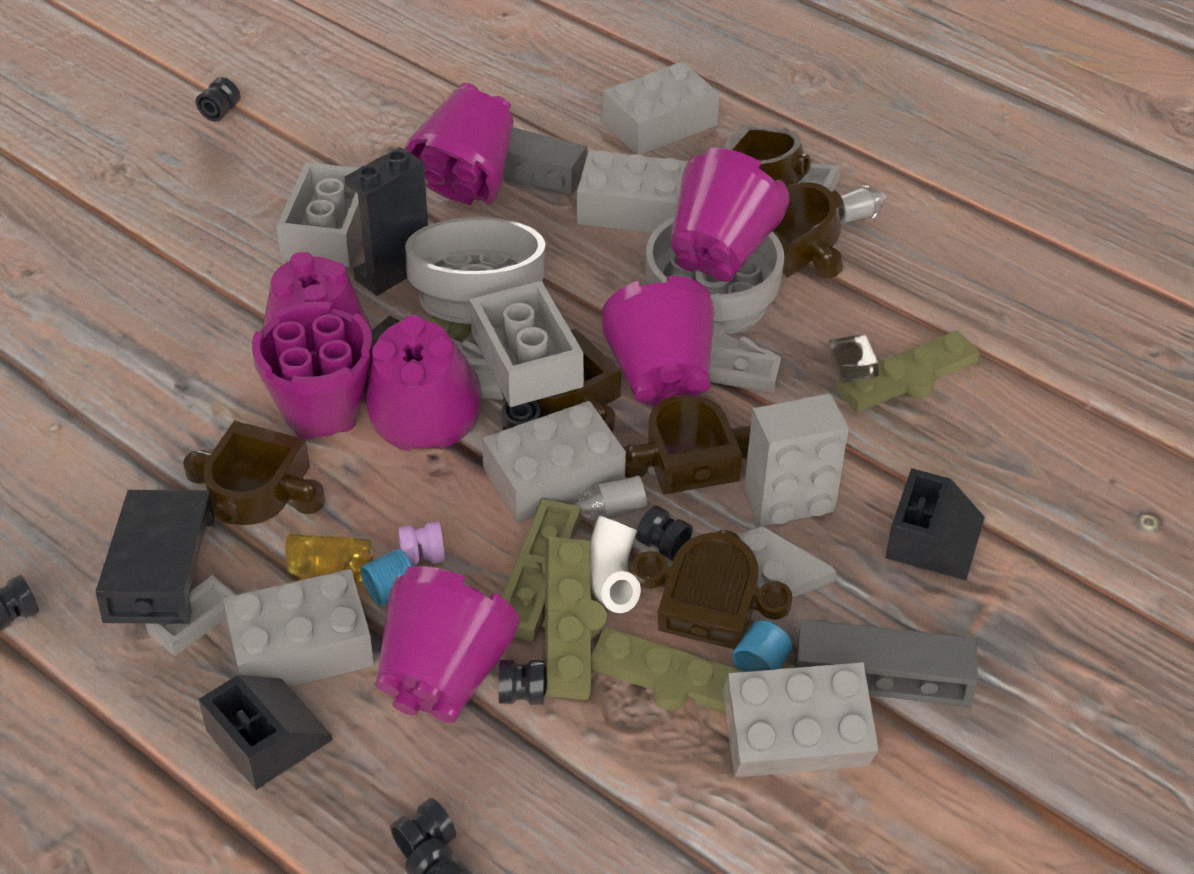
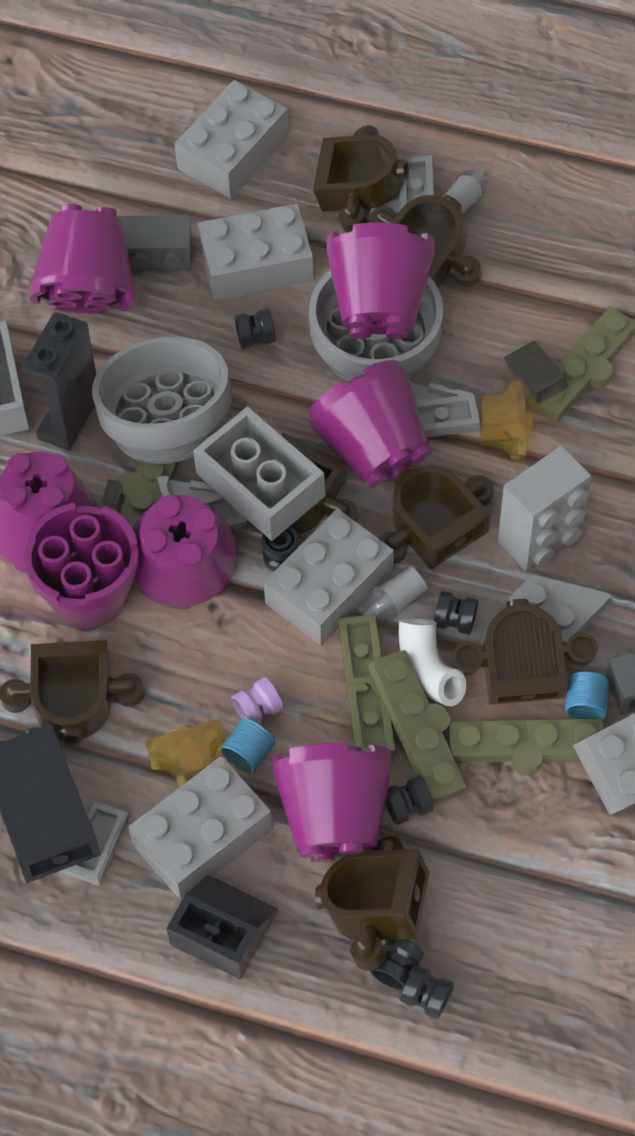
camera: 20 degrees left, 15 degrees up
(431, 756) = (375, 898): none -> dark brown piece
(599, 249) = (255, 328): none -> black wheel
(802, 379) = (506, 421): none -> clear yellow brick

